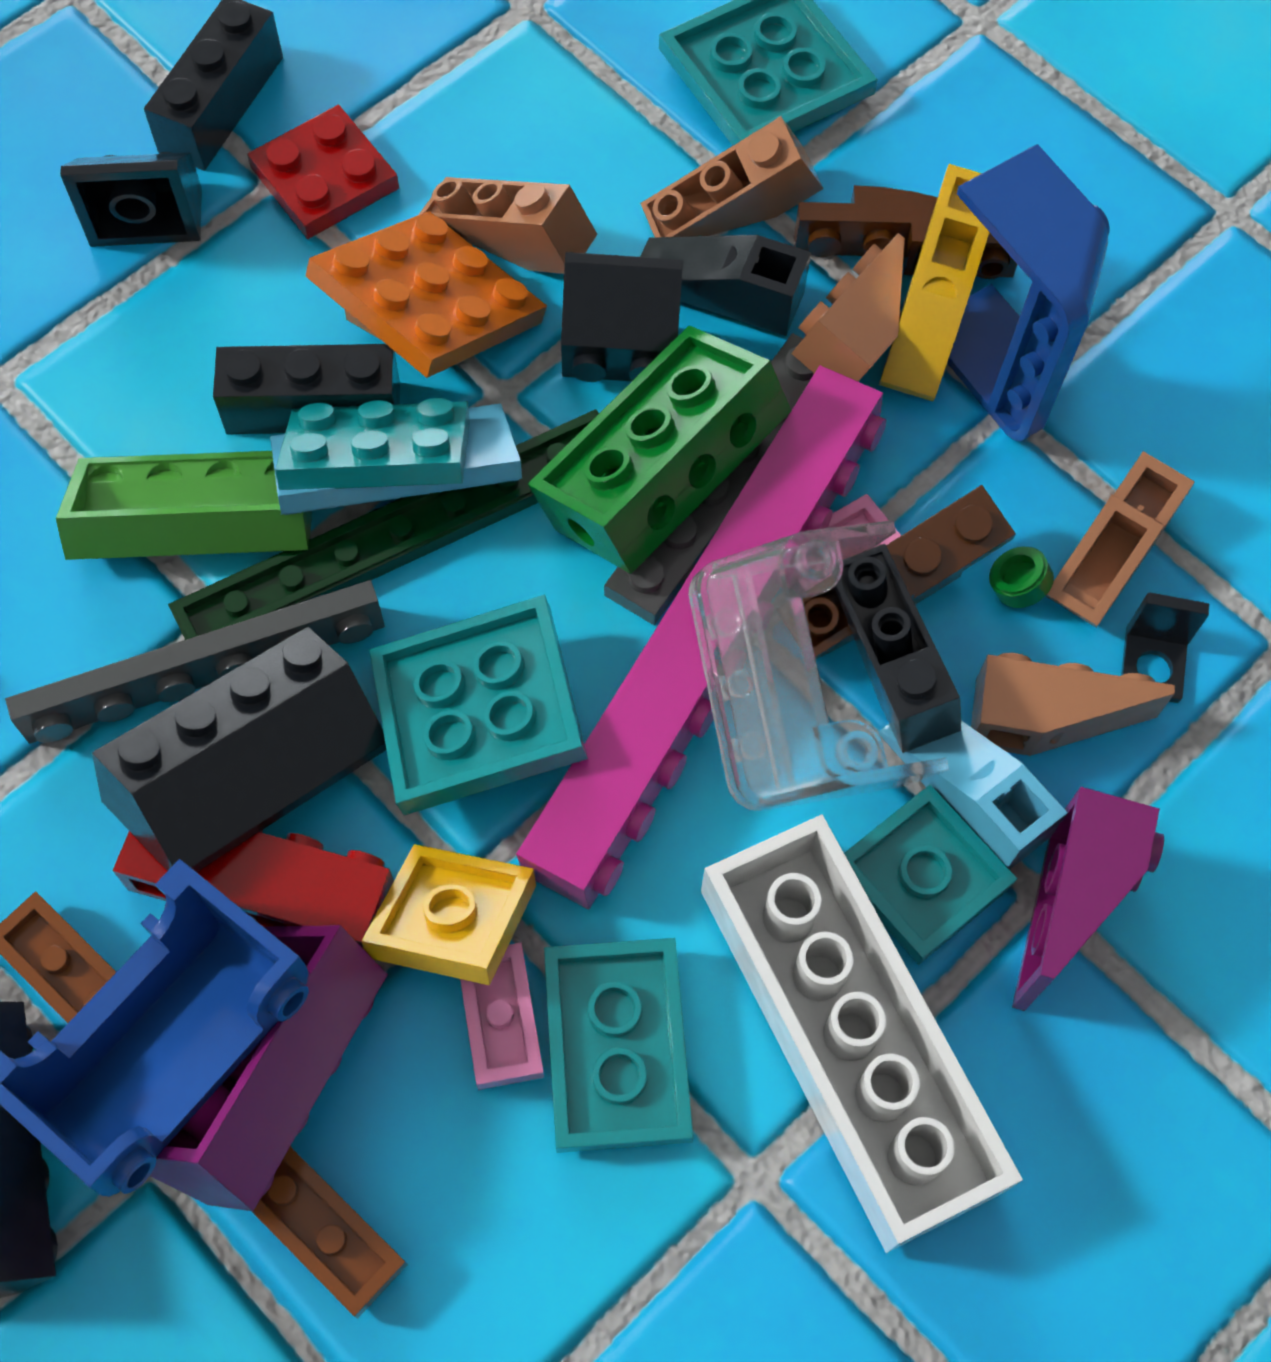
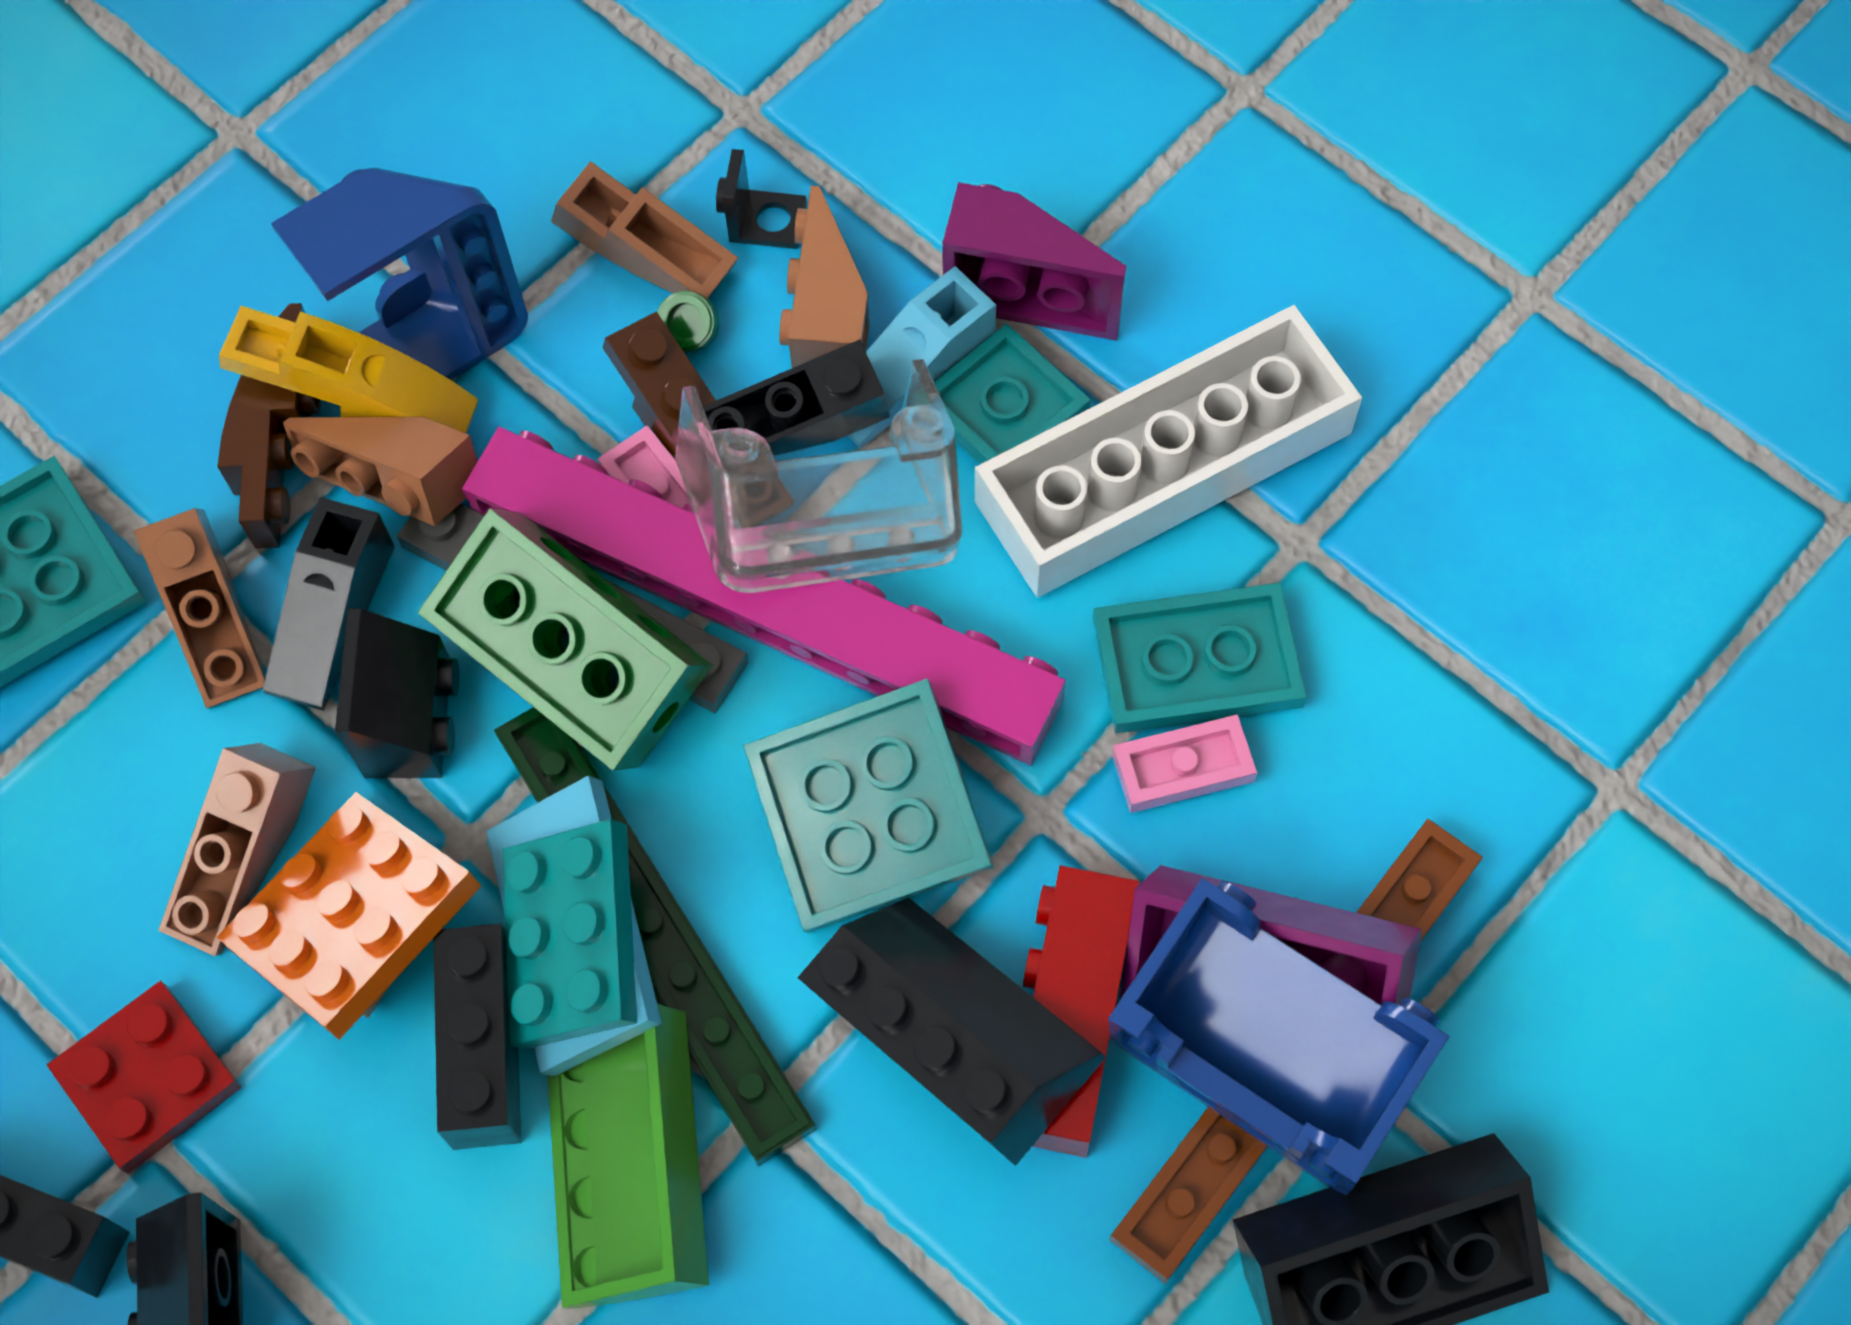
camera: 90 degrees left, 0 degrees up
(180, 668) = (846, 1132): dark grey plate -> none
(450, 914) = (1094, 807): yellow plate -> none

